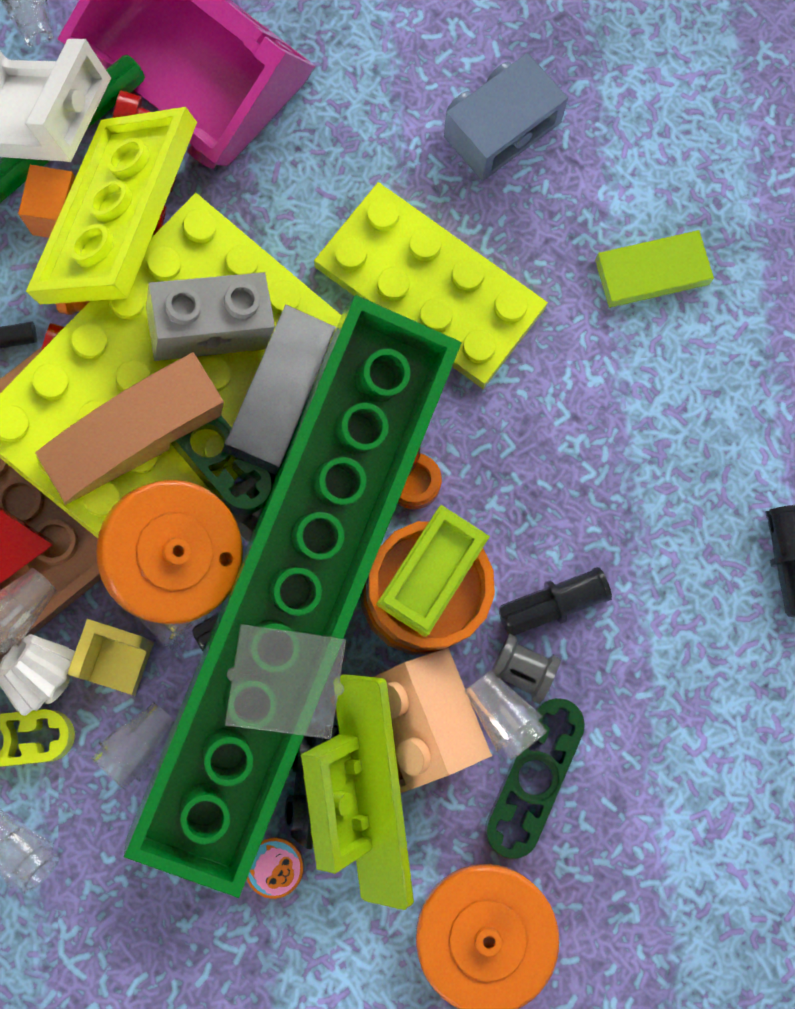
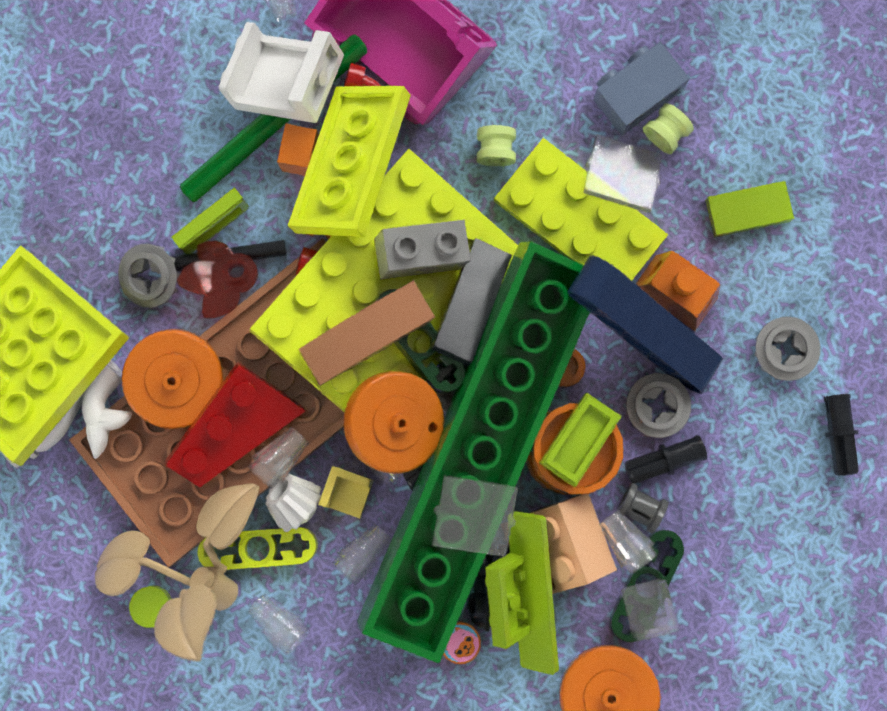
camera: 10 degrees right, 5 degrees up
(315, 192) = (496, 145): none -> yellowish green wheel
(484, 225) = (622, 173): none -> clear piece
(516, 408) = (644, 324): none -> dark blue beam
(539, 810) = (649, 609): none -> clear panel
(542, 166) = (668, 128): none -> yellowish green wheel
(564, 516) = (675, 397): none -> light grey gear
(566, 369) = (680, 288): none -> orange torso
(734, 438) = (803, 340): none -> light grey gear

